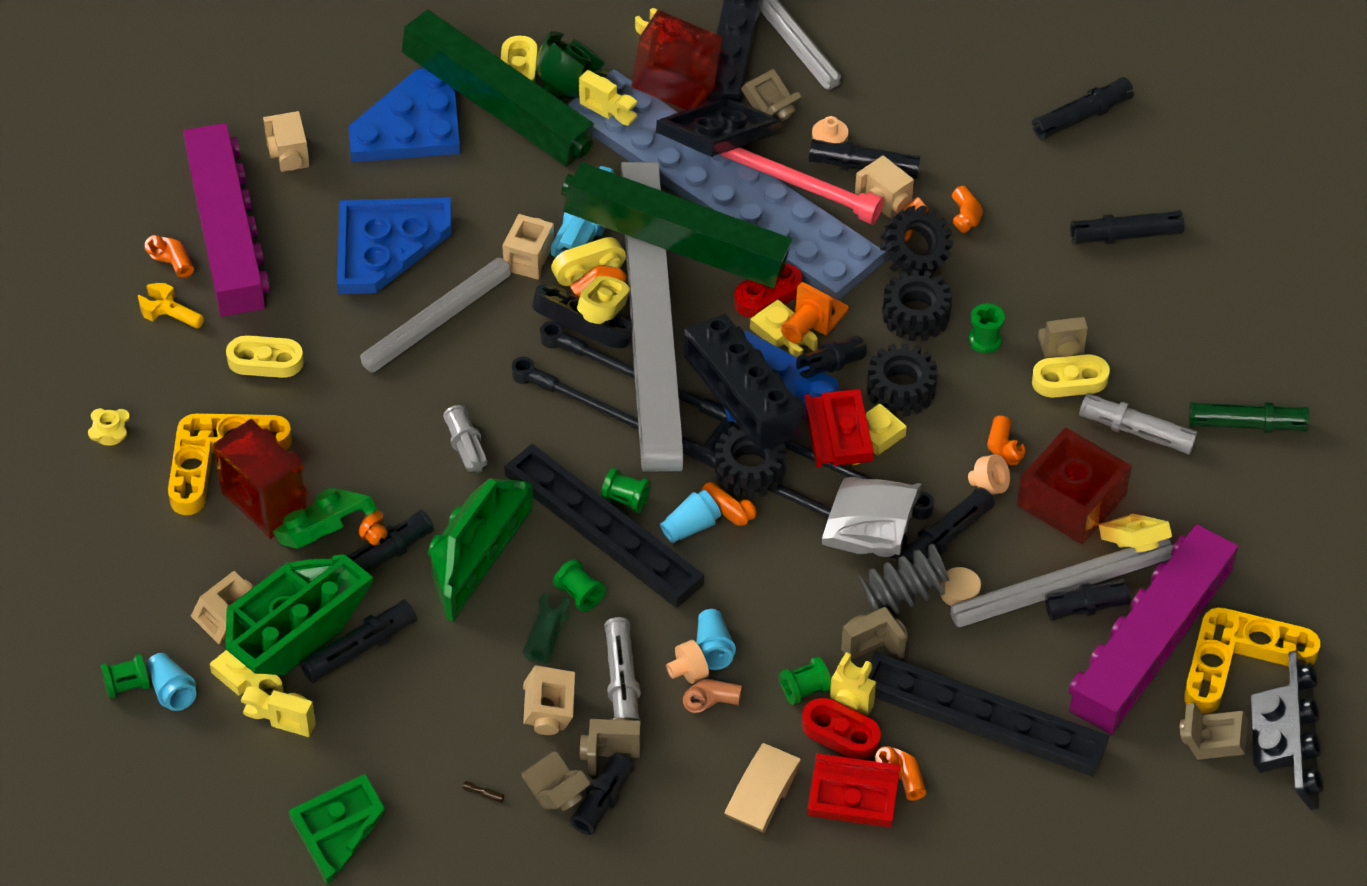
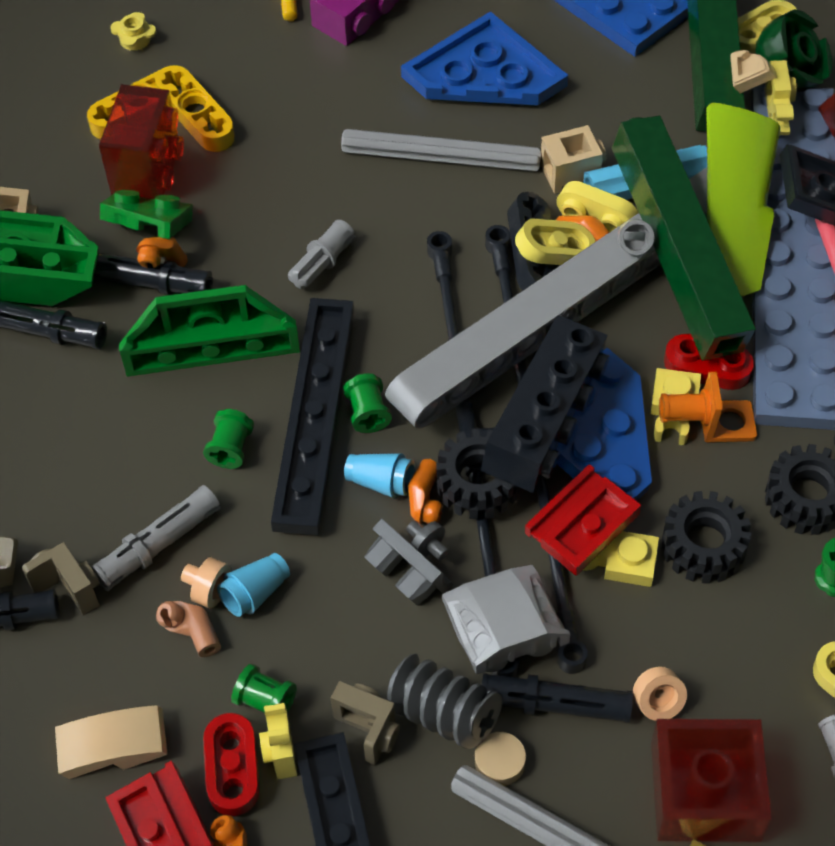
camera: 55 degrees right, 5 degrees up
(268, 356) = (287, 73): light yellow plate -> none
(545, 630) = (165, 445): clear green bar -> none
(556, 692) = (76, 481): tan brick -> none
(573, 93) = (750, 70): none -> tan tile
(647, 155) = (738, 186): none -> lime panel
(659, 254) = (635, 246): none -> light grey hinge
(776, 533) = (423, 576): none -> dark grey hips
(831, 357) = (669, 459): black pin -> none
(1000, 444) = (712, 678): orange arm -> none

